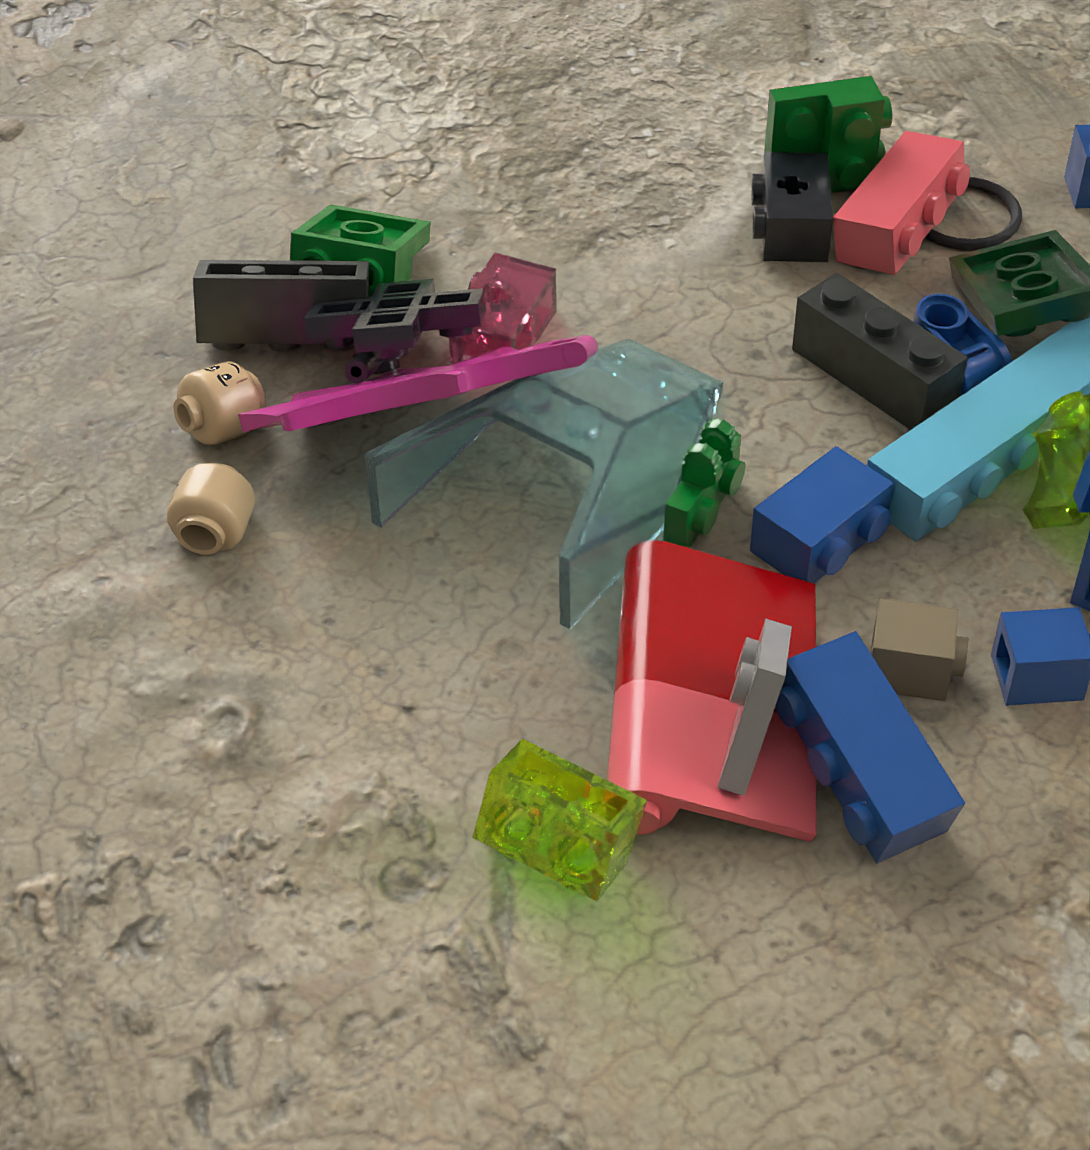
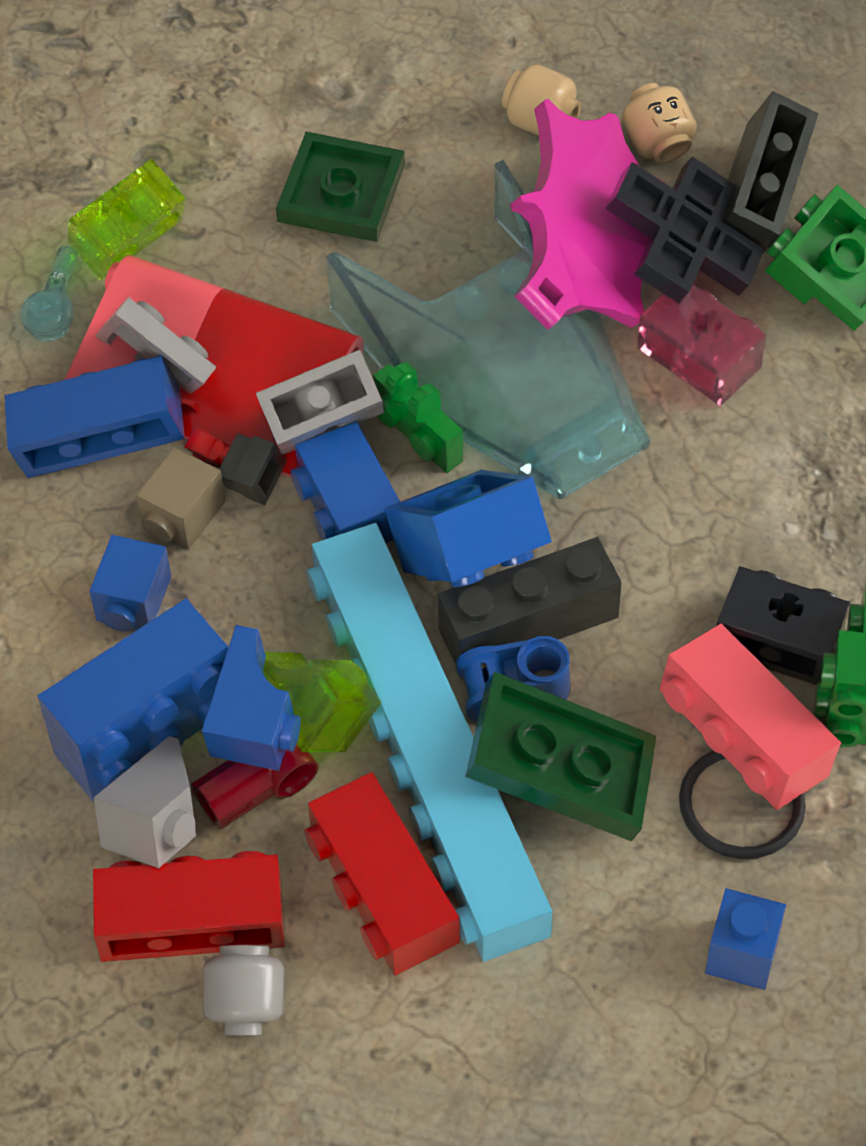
camera: 110 degrees right, 10 degrees up
(401, 651) = (340, 186): none -> dark green plate
(711, 886) = (50, 312): none -> clear light blue plate
(761, 523) = (320, 401): none -> light grey brick
(841, 379) = (469, 527): none -> blue brick
(841, 596) = (245, 467): none -> pearl dark grey piece

